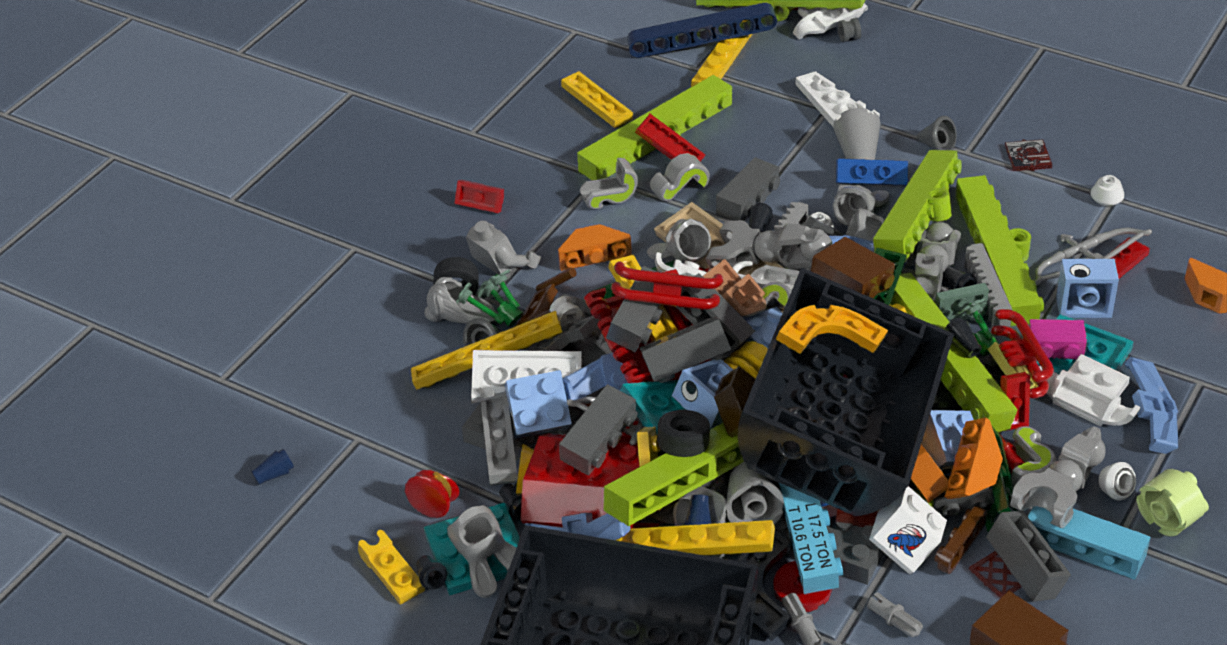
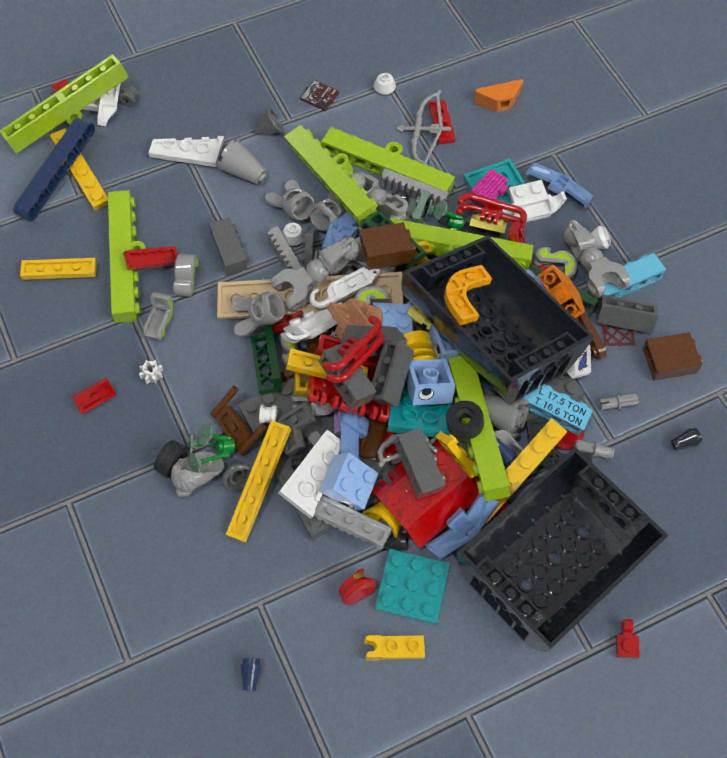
camera: 60 degrees left, 20 degrees up
(431, 573) = (420, 626): black cone -> none
(477, 538) = (426, 583): light grey piece -> none
(494, 249) = (158, 418): light grey torso -> none
(543, 218) = (146, 372): none -> white gear
(593, 246) = (204, 360): orange slope -> none
(732, 397) = (463, 375): dark brown slope -> none
(760, 216) = (259, 258): black cone -> none
(871, 172) = (272, 176): blue plate -> none
(964, 337) = (468, 231): black cone -> none
(1087, 288) = (460, 148): light blue brick -> none
(1172, 501) = (637, 226): yellowish green brick -> none

